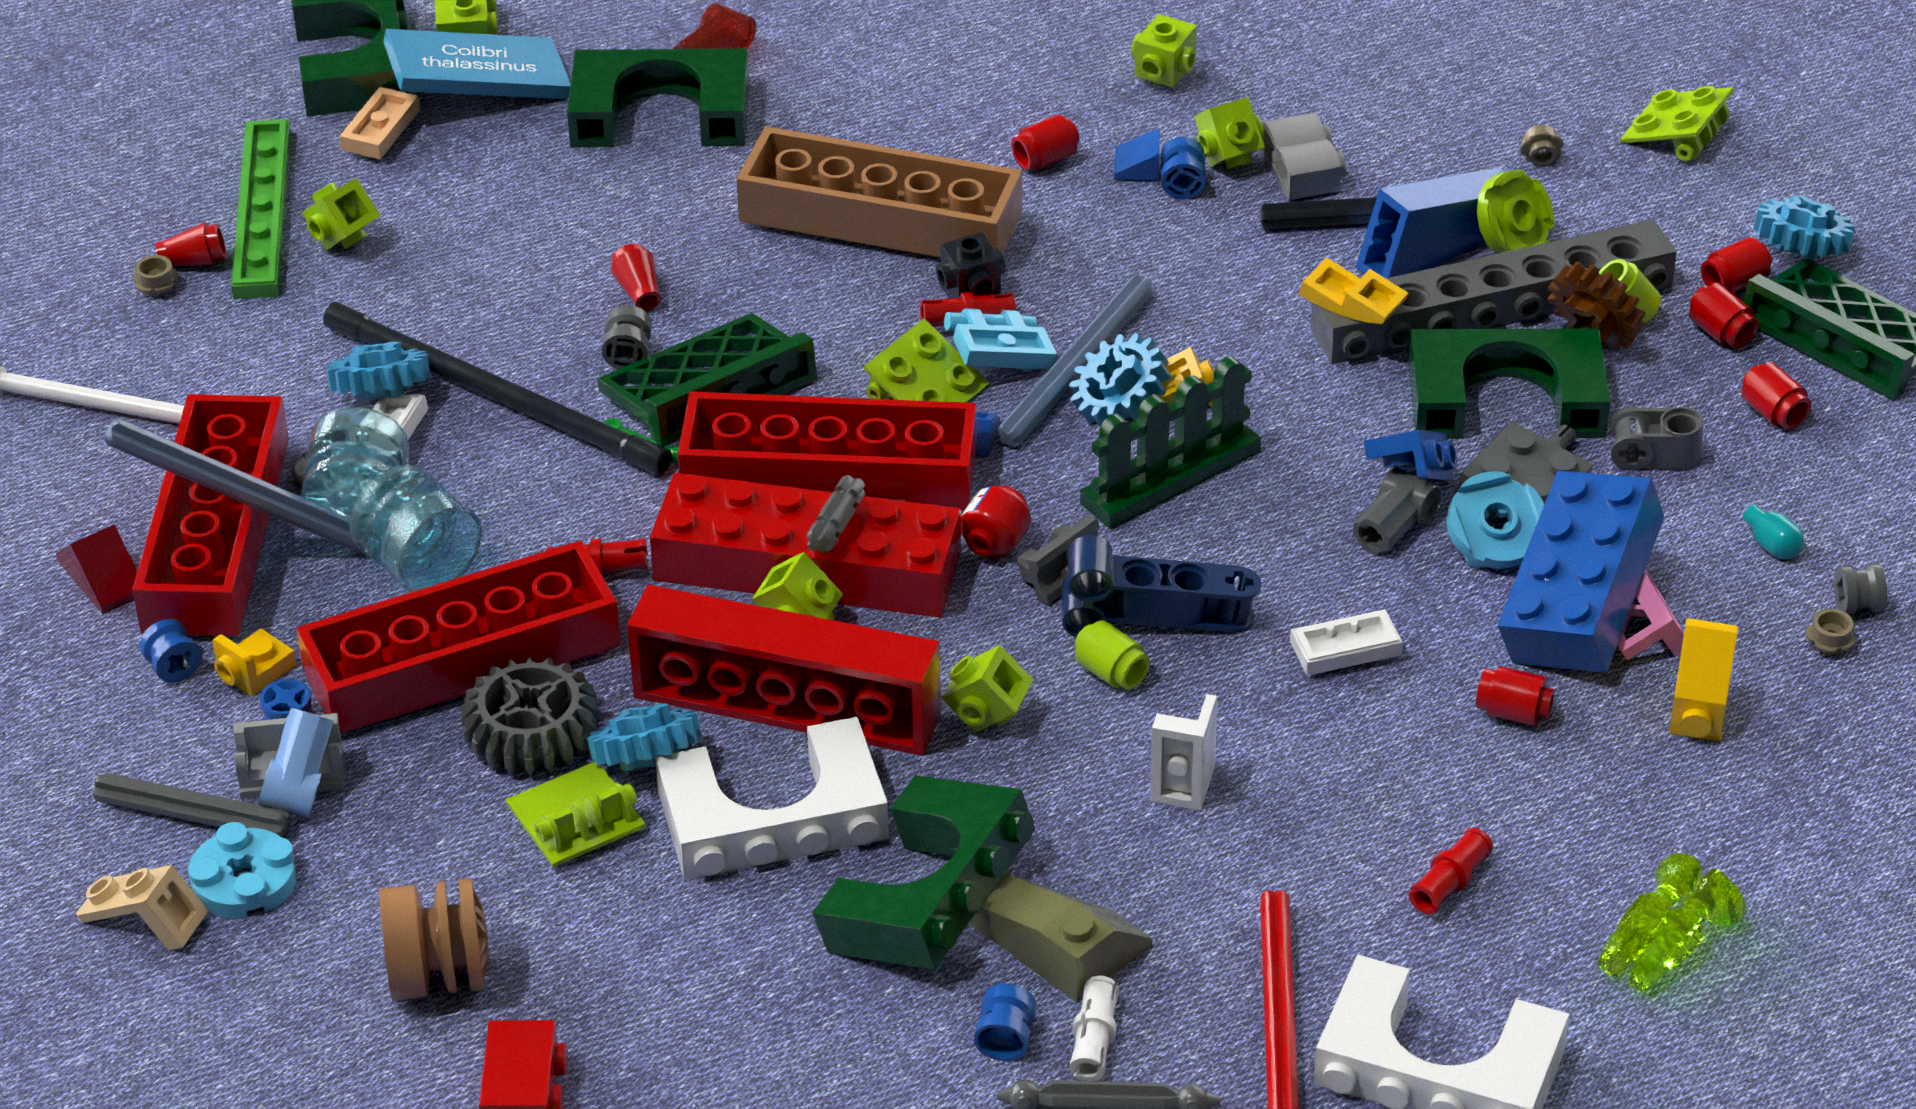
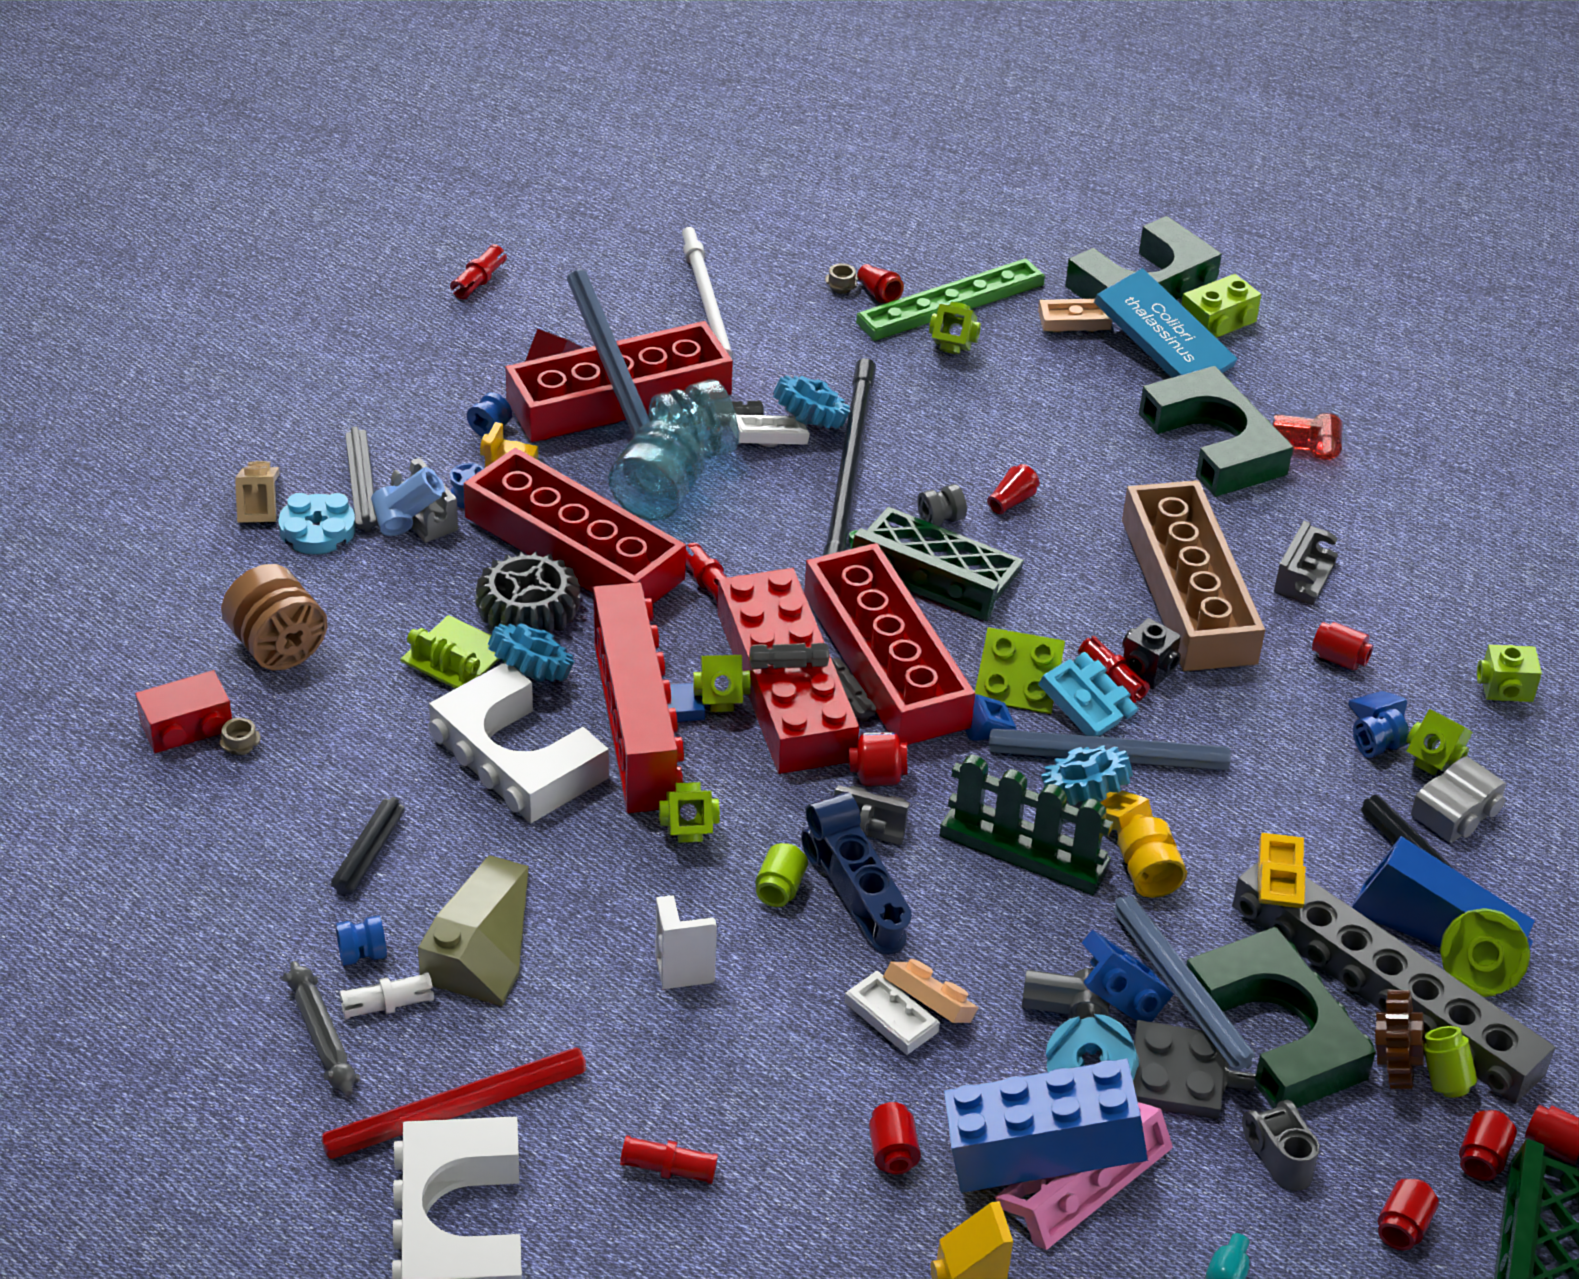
camera: 60 degrees right, 0 degrees up
(591, 1044) = (239, 736): none -> dark tan plate
(850, 980) = (367, 846): none -> black axle
(903, 122) = (1306, 564): none -> dark grey hinge
(924, 918) = (524, 857): dark green arch -> none
(1271, 379) = (1152, 857): none -> yellow wheel
(1357, 594) = (944, 998): none -> light nougat plate
(1444, 419) = (1184, 984): none -> sand blue axle

